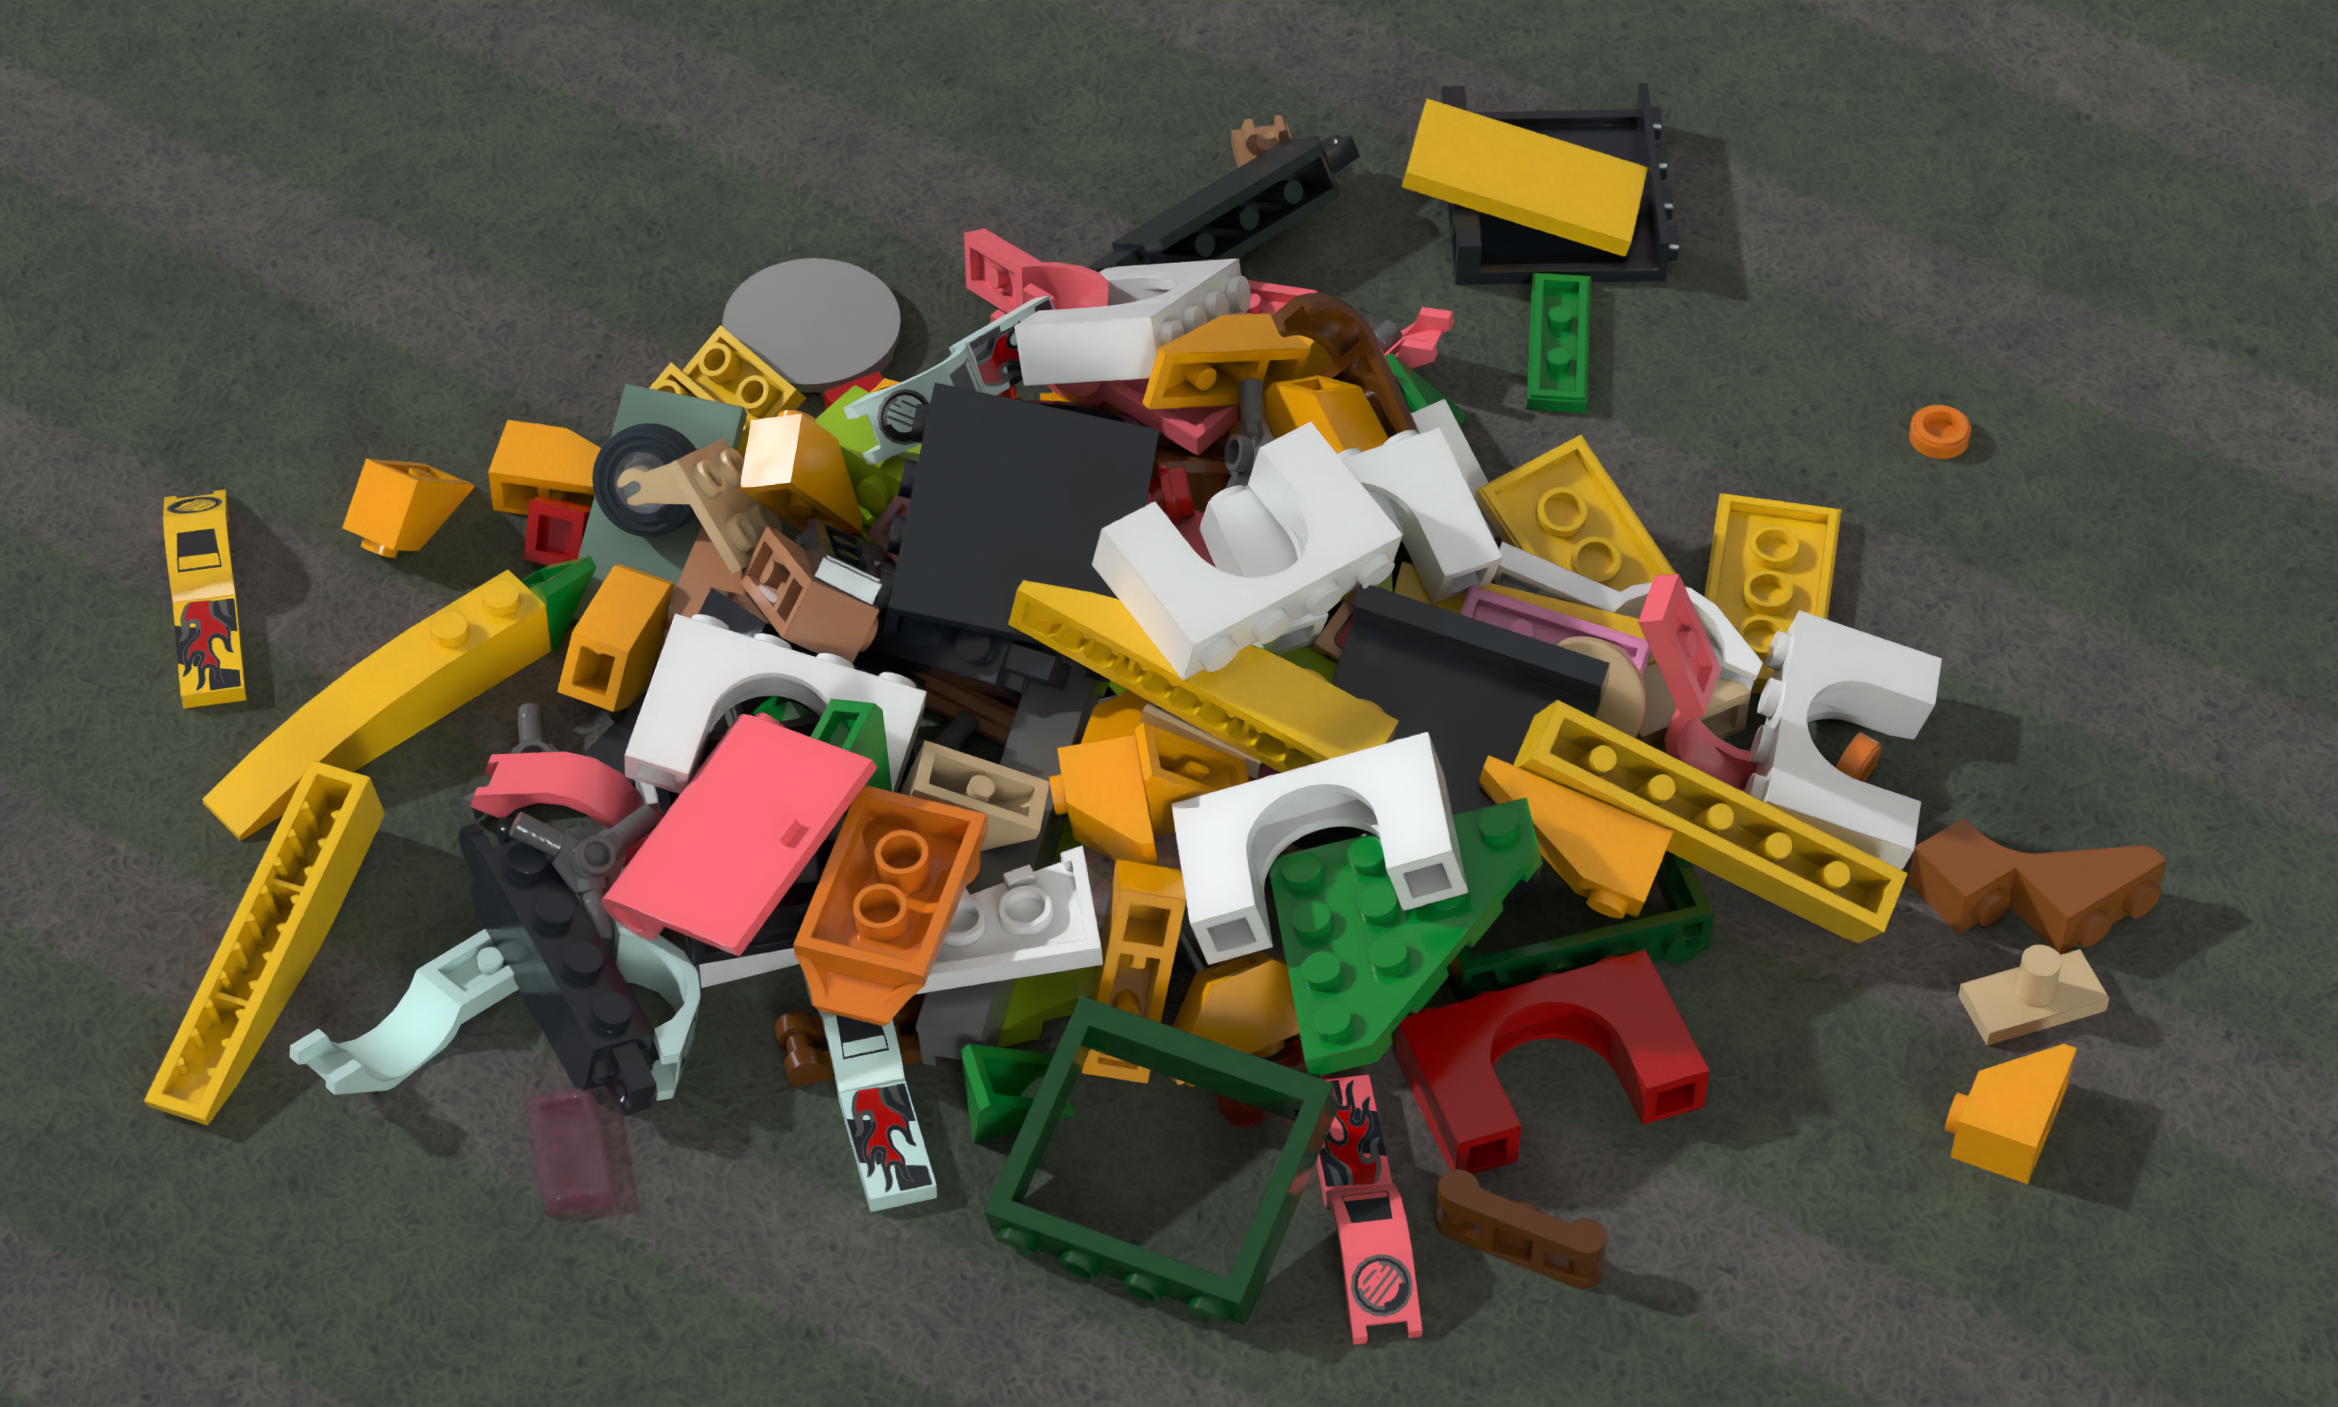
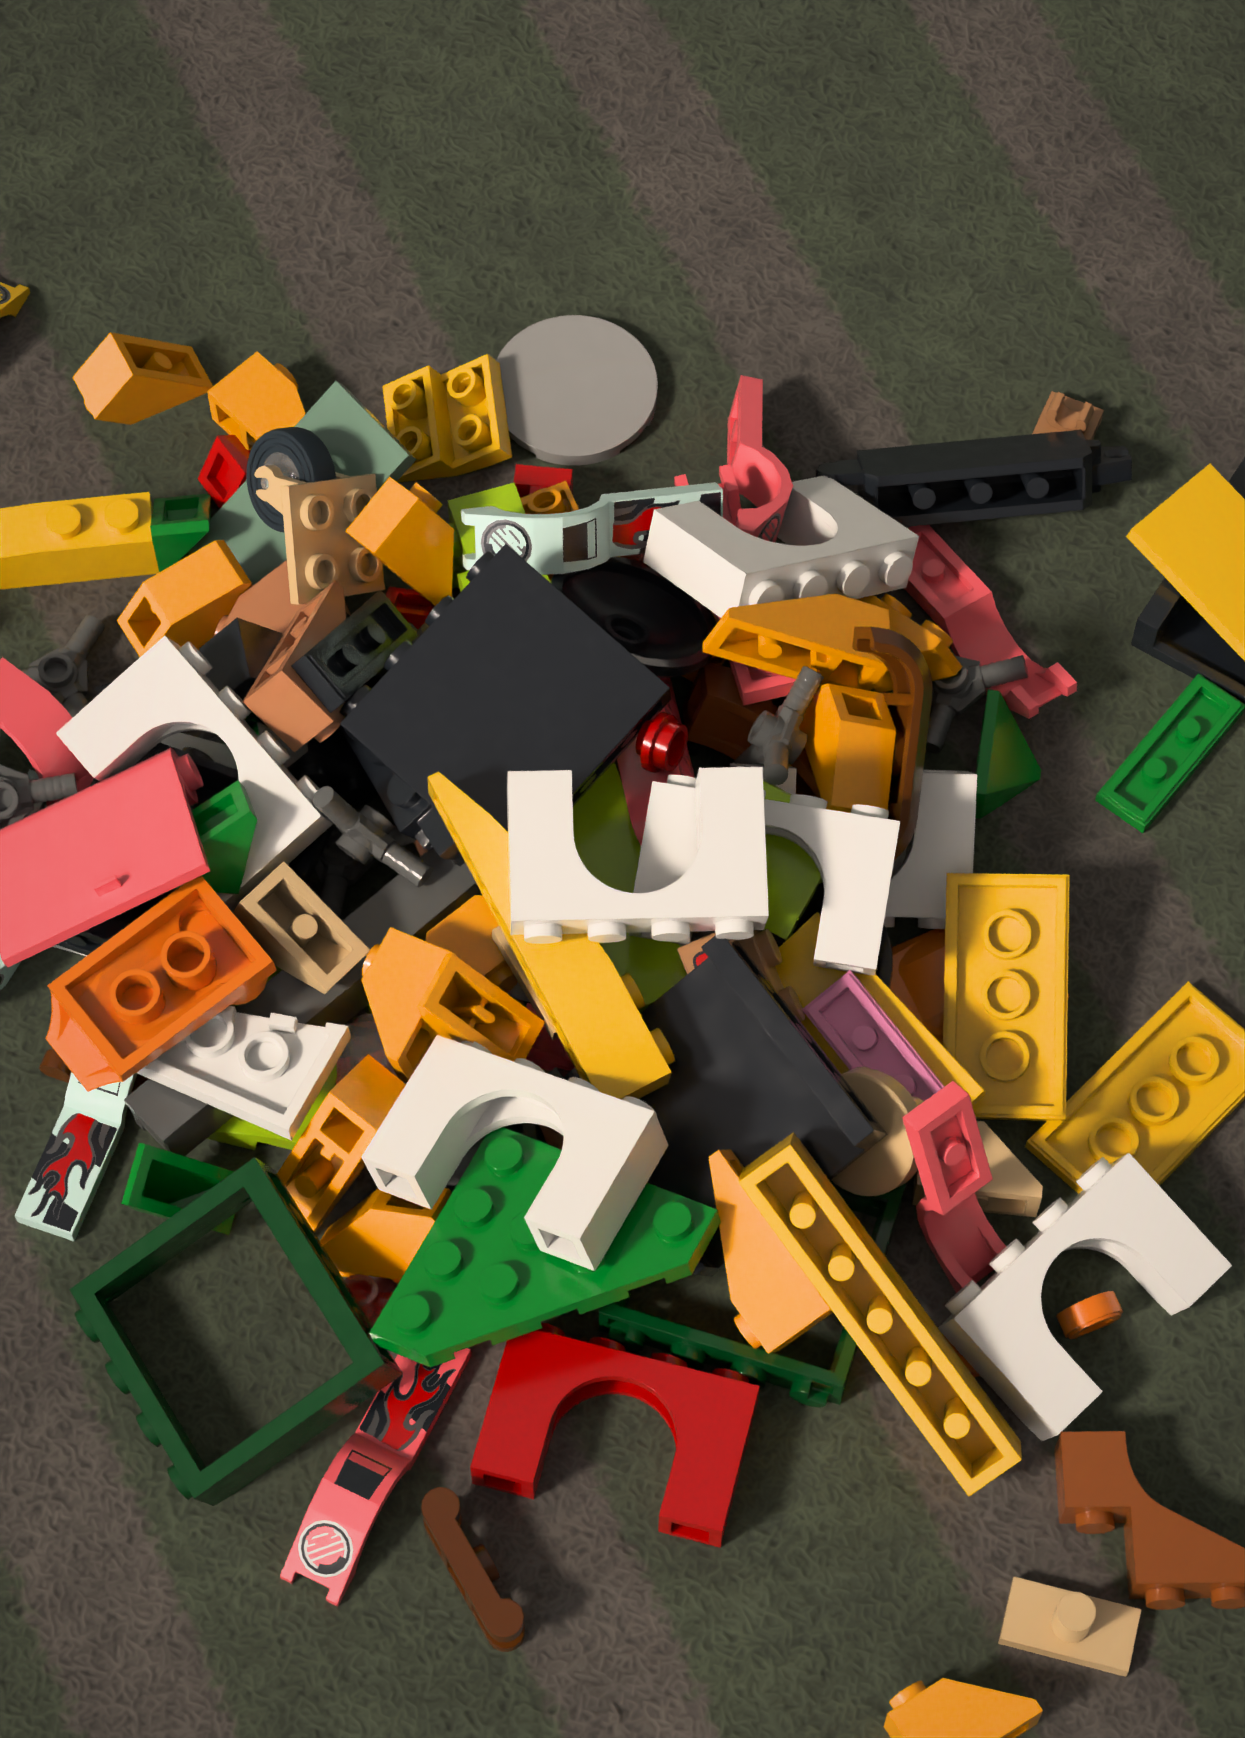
camera: 35 degrees right, 15 degrees up
(959, 707) = (366, 836): none -> dark grey piece
(1538, 576) = (967, 1052): white piece -> none

